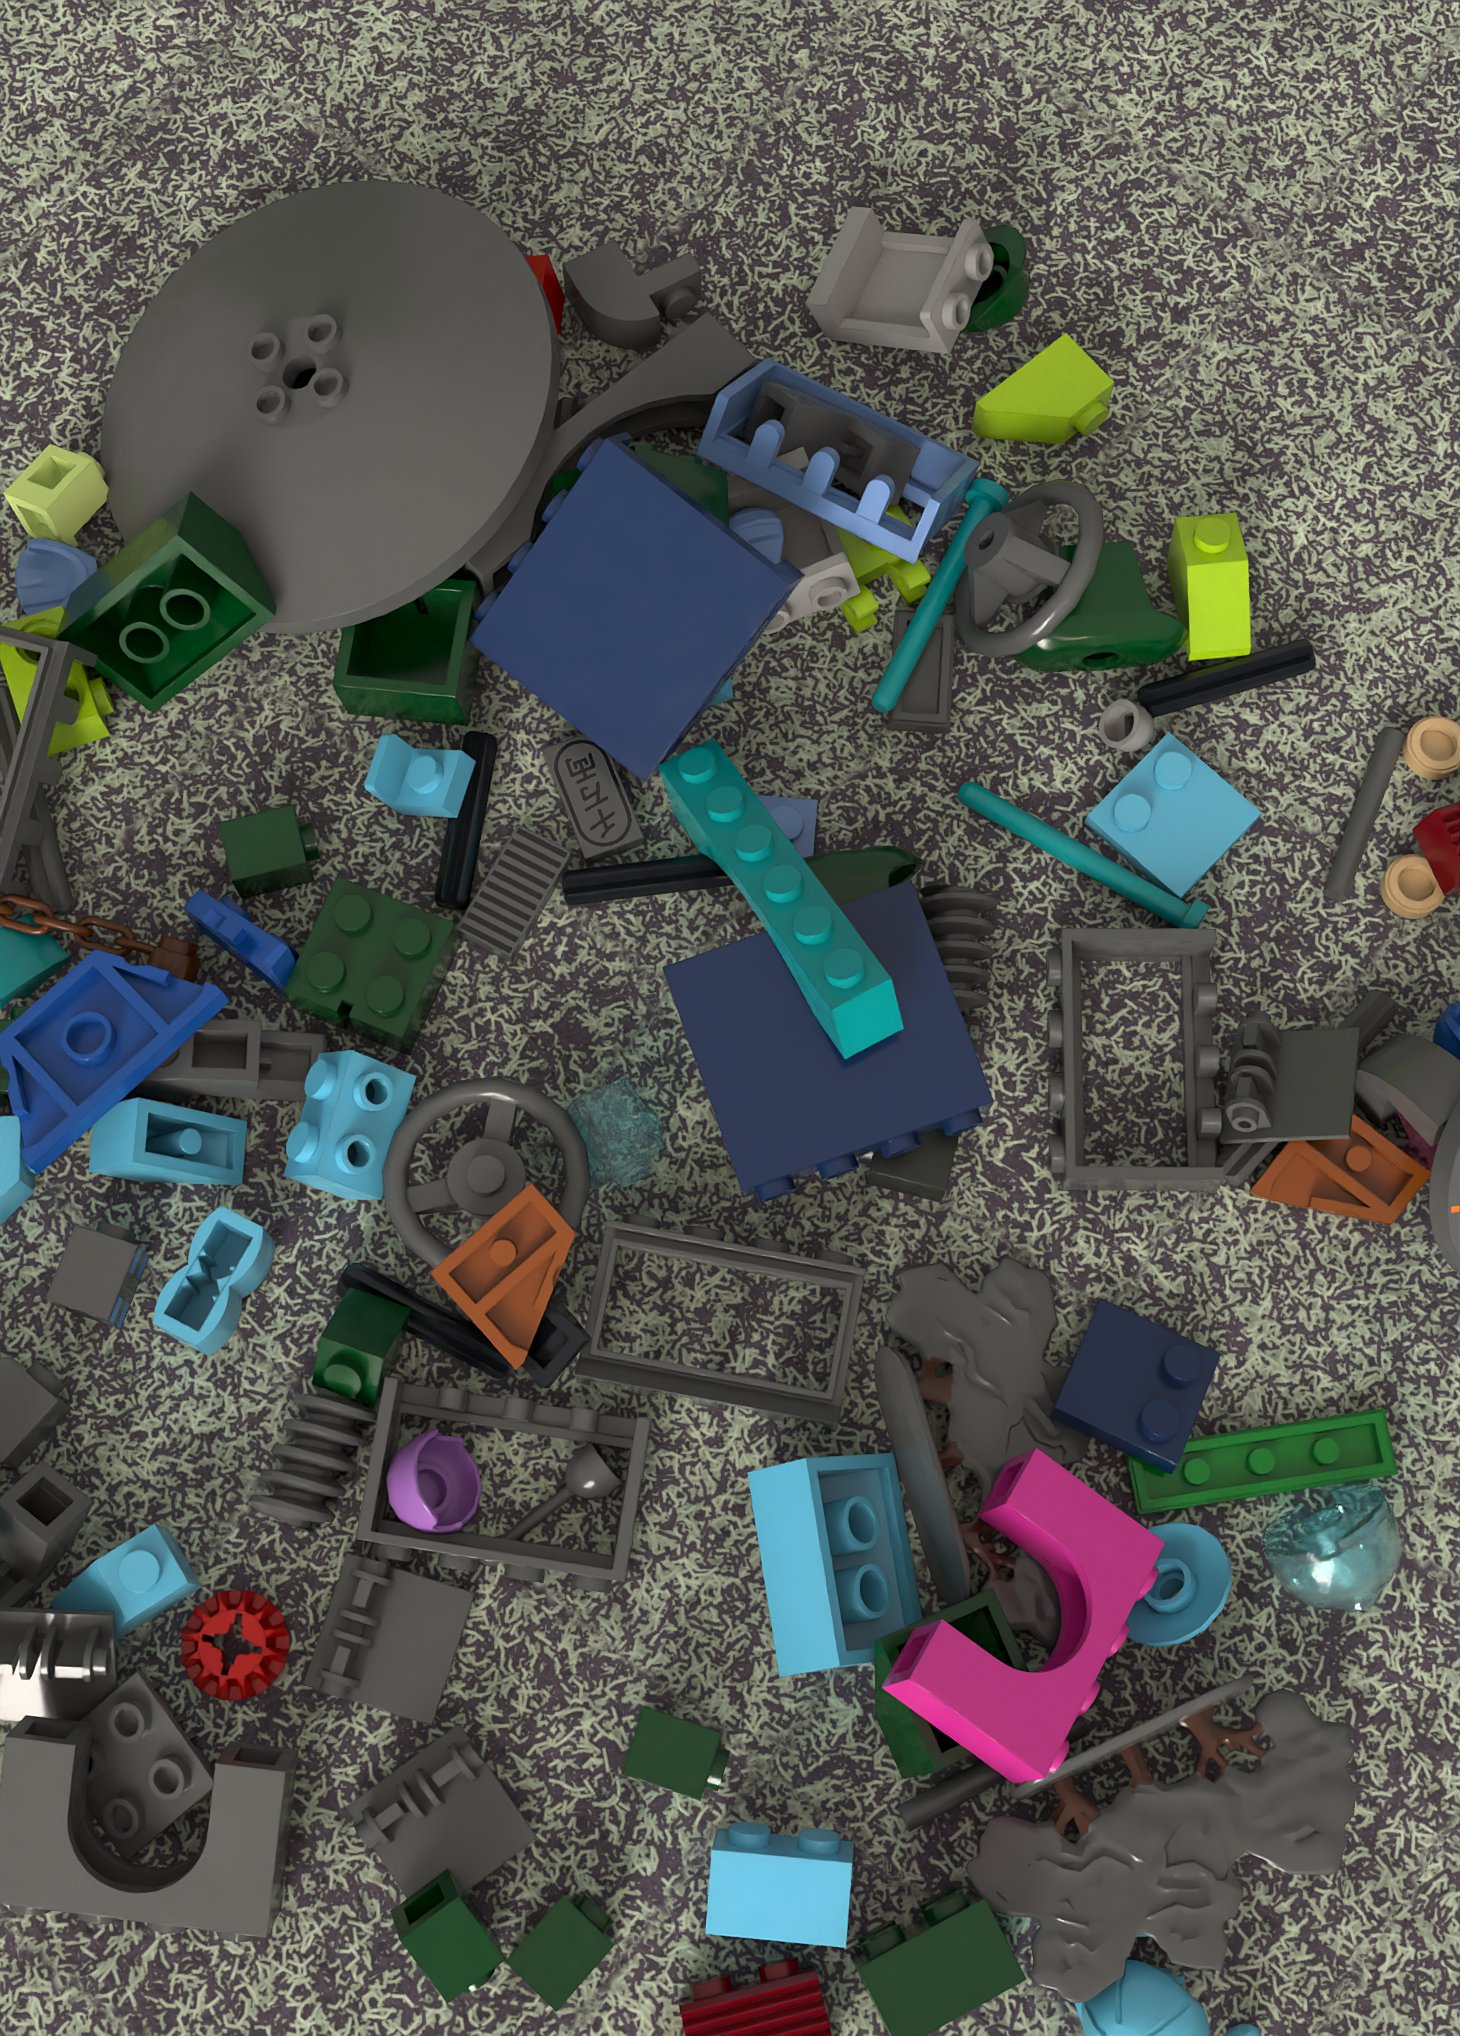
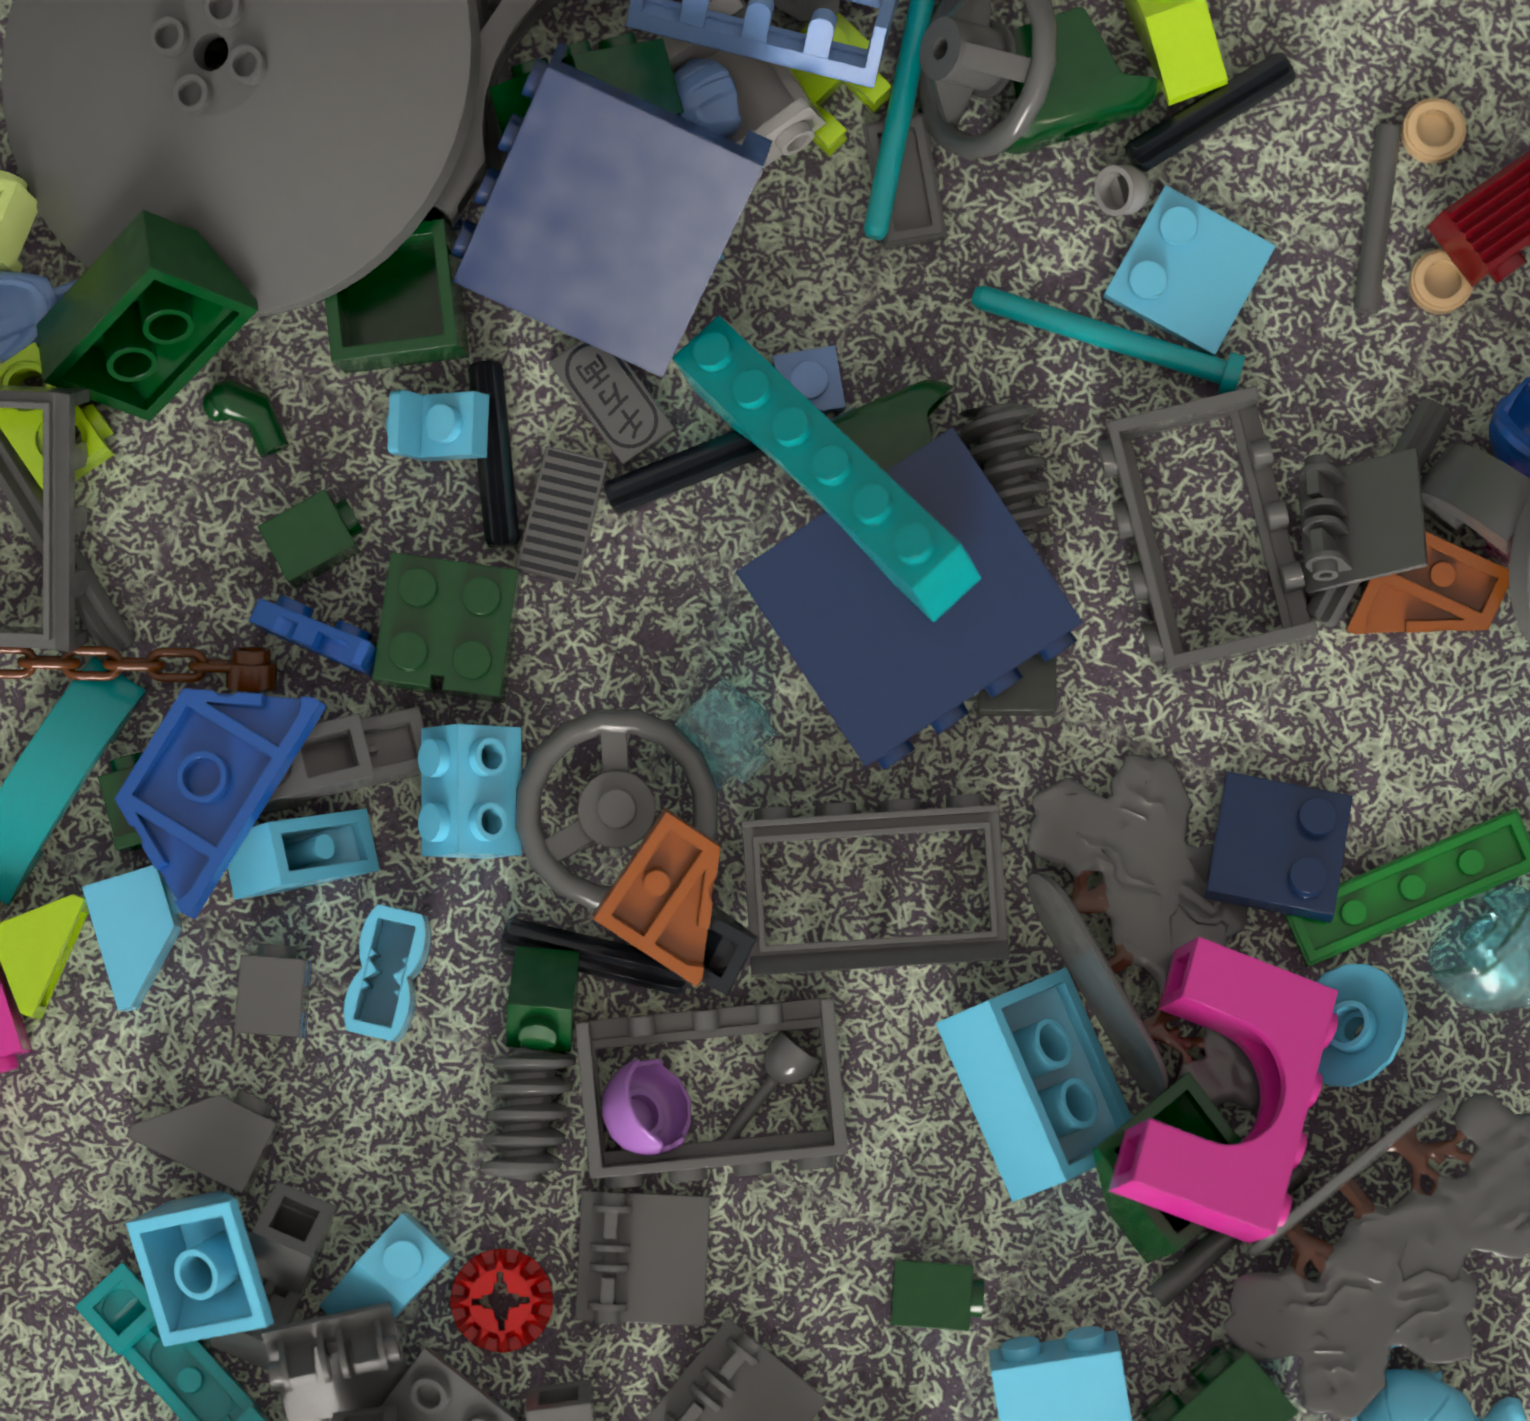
camera: 10 degrees left, 10 degrees up
(247, 719) = (251, 407): none -> dark green arm

